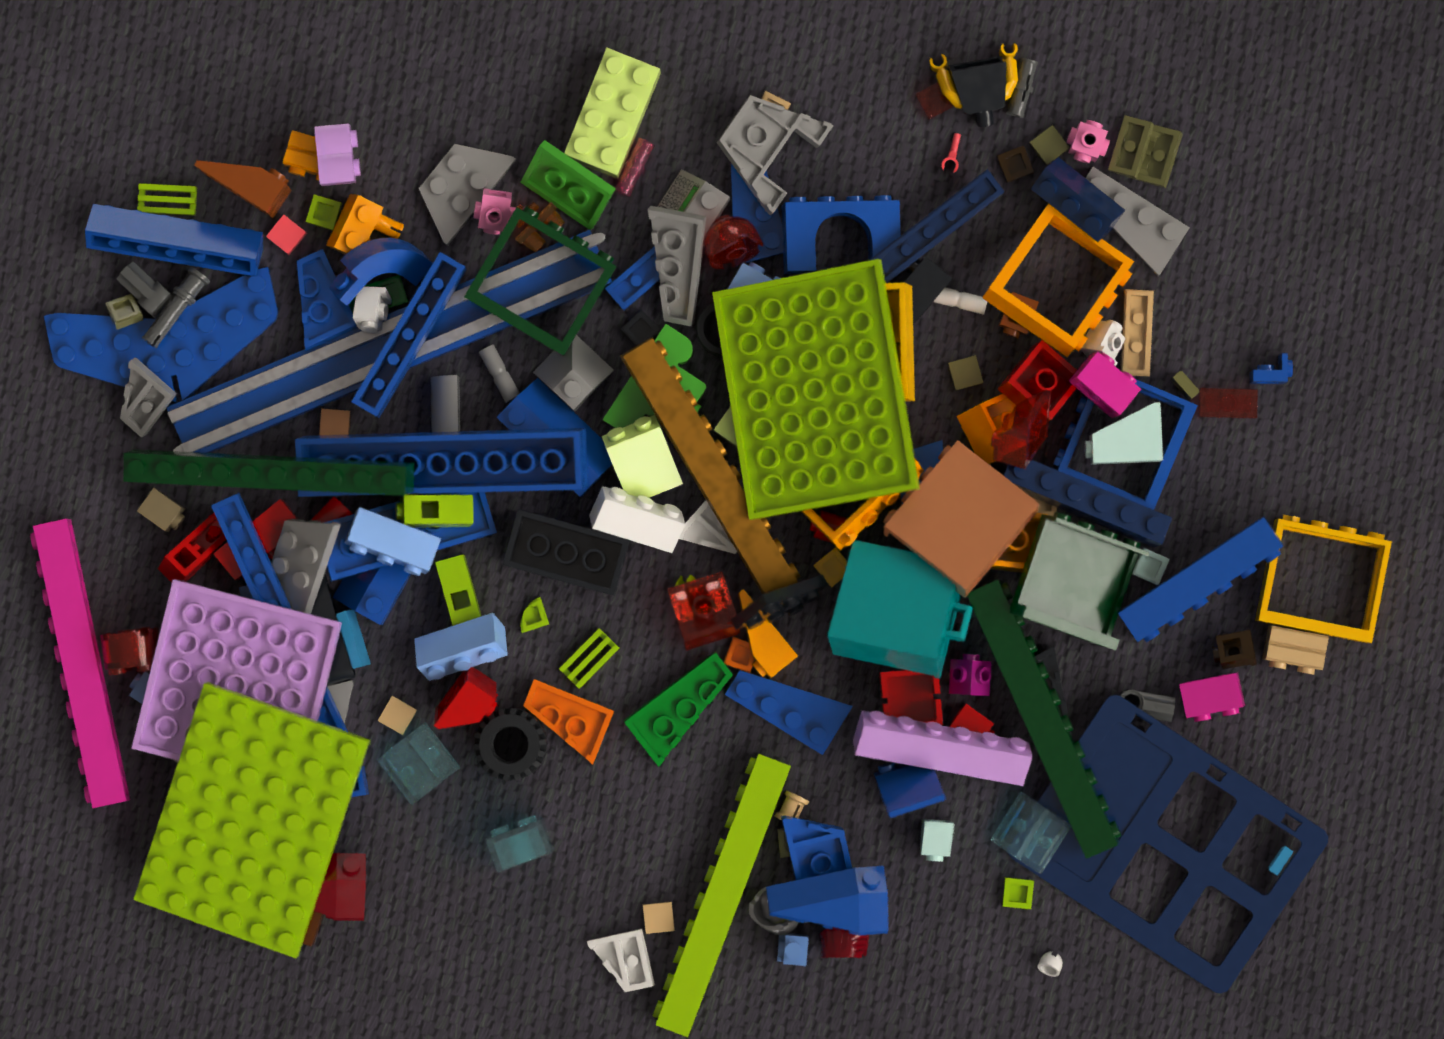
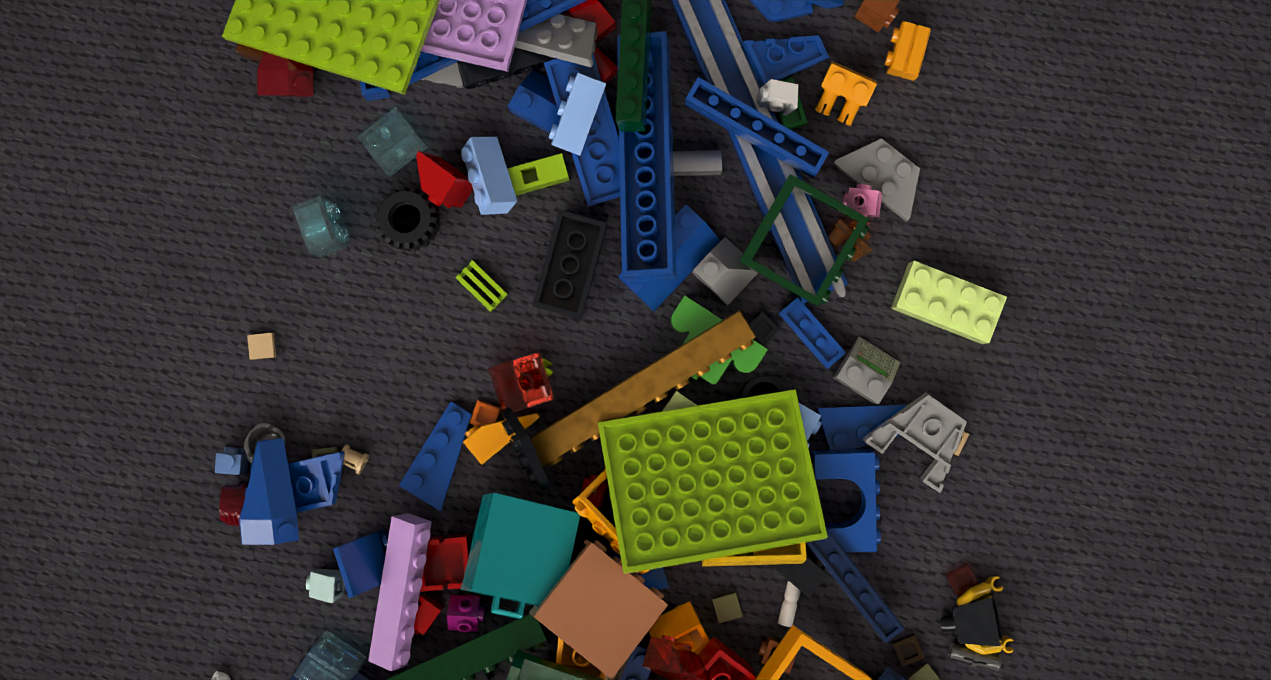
camera: 90 degrees right, 0 degrees up
(286, 234) = (840, 27): coral tile -> none
(323, 212) = (860, 58): lime tile -> none
(334, 422) = (681, 69): medium nougat tile -> none
(336, 155) = (911, 64): lavender brick -> none
(353, 639) = (496, 85): dark azure tile -> none
(377, 258) = (822, 102): blue arch -> none
(397, 715) = (433, 124): tan tile -> none
(435, 511) = (604, 151): lime brick -> none
(498, 370) = (721, 209): light grey piece -> none
(534, 616) = (517, 239): lime tile -> none
(567, 185) = (886, 264): bright green plate -> none
(571, 717) = (431, 270): orange wing -> none
(625, 958) = (226, 318): white wing -> none
(634, 167) = (901, 322): clear pink pin -> none
(637, 519) = (599, 325): white brick -> none
(642, 458) = (650, 329): yellowish green brick -> none
(671, 712) = (434, 355): green wing -> none
(678, 250) = (824, 360): light grey wing -> none
(706, 530) = (590, 384): white wing -> none
(722, 895) = (278, 400): lime brick -> none
(731, 241) = (839, 405): clear red cylinder -> none
(832, 567) = (559, 493): yellow tile -> none
(953, 152) = (917, 596): coral hand -> none
(1018, 893) = (280, 653): lime tile -> none

